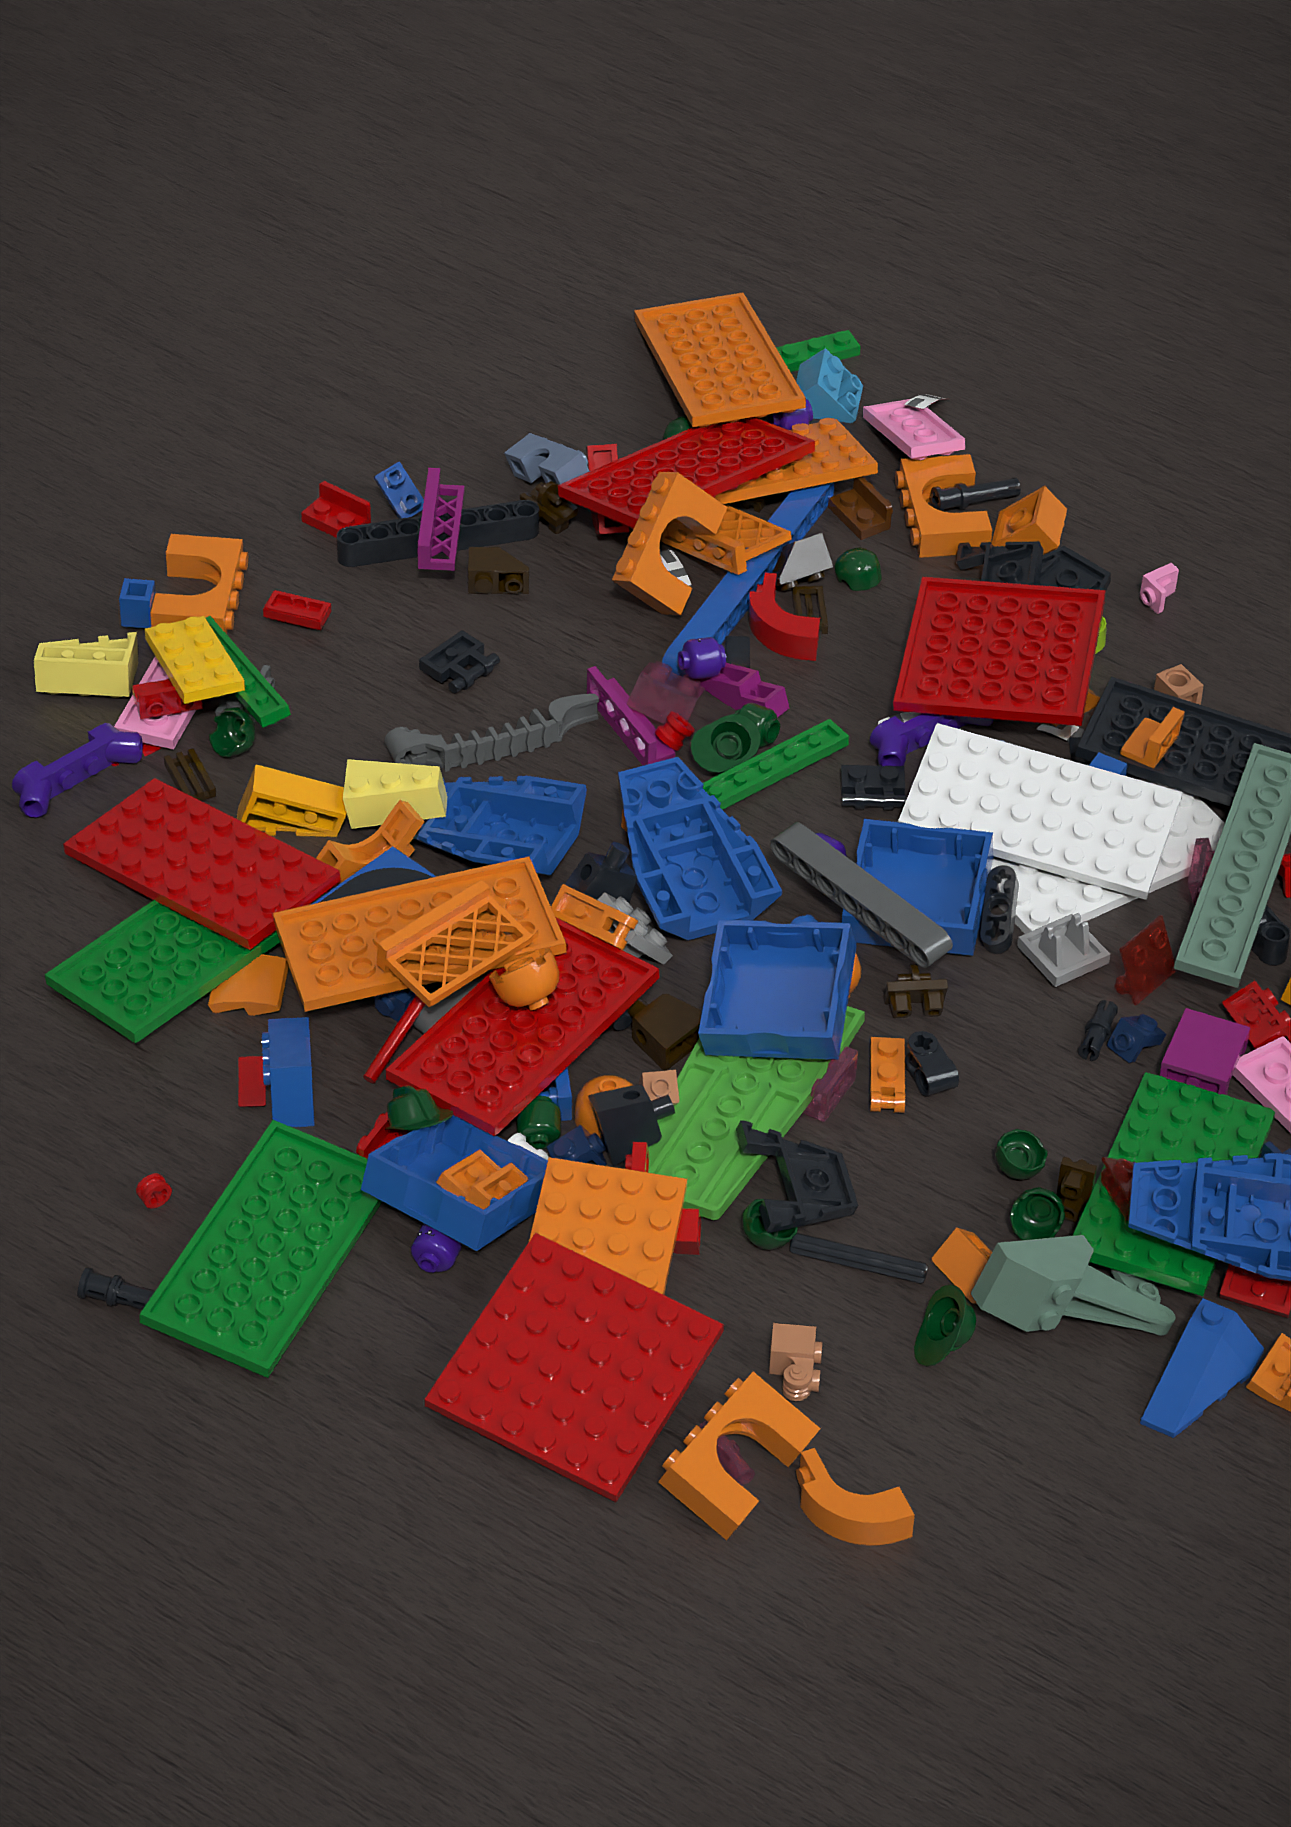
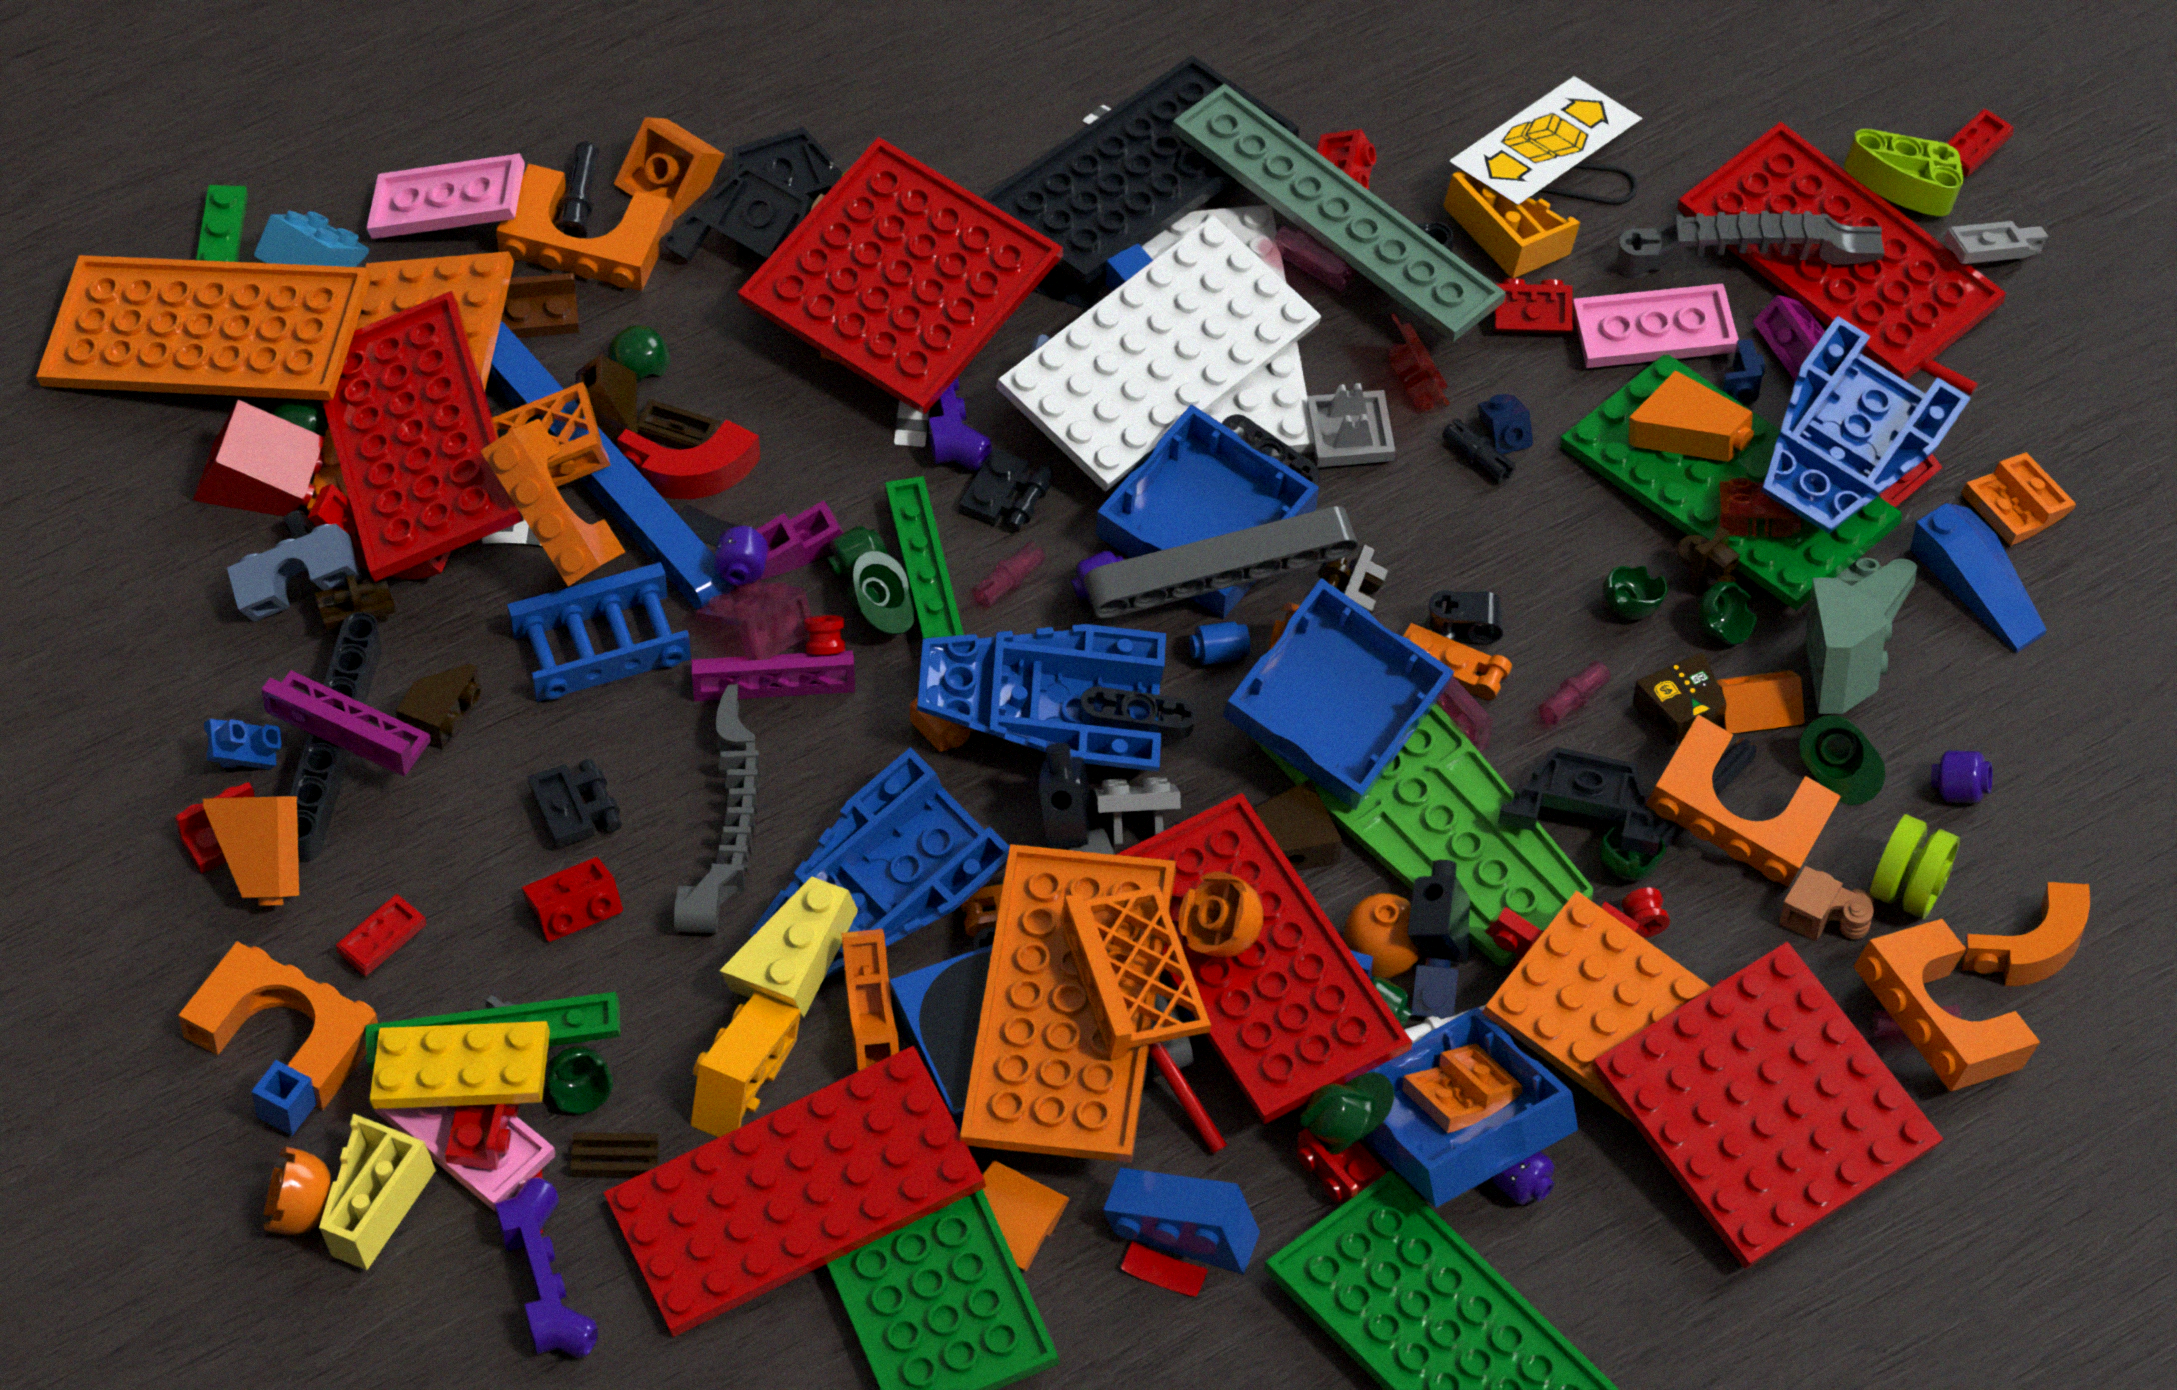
camera: 65 degrees left, 10 degrees up
(69, 624) = (297, 1193): none -> orange cylinder
(319, 521) = (258, 844): none -> orange slope
(379, 686) = (573, 898): none -> red bracket
(592, 916) = (1130, 821): orange plate -> none
(611, 603) = (591, 600): none -> blue fence
(630, 417) = (260, 463): none -> slope
(660, 1084) = (1385, 869): nougat bracket -> none
(710, 892) = (1150, 702): none -> black beam
(720, 1252) = (1646, 909): none -> red wheel
(798, 811) = (1008, 574): none -> clear pink pin
(835, 1313) = (1771, 846): none -> orange arch
(857, 1393) = (1911, 864): none -> lime wheel
(903, 1152) = (1574, 692): none -> clear pink pin
(922, 401) = (390, 166): sticker -> none
(934, 1214) = (1677, 695): none -> dark brown torso
(978, 1411) = (1962, 776): none -> dark purple head
(1153, 739) = (1113, 202): orange panel -> none
(1158, 585) = (839, 103): bright pink bracket -> none
(1180, 684) = (1010, 152): nougat brick -> none
(1195, 1121) = (1691, 421): none -> orange slope
(1204, 1051) = (1566, 371): magenta panel -> none

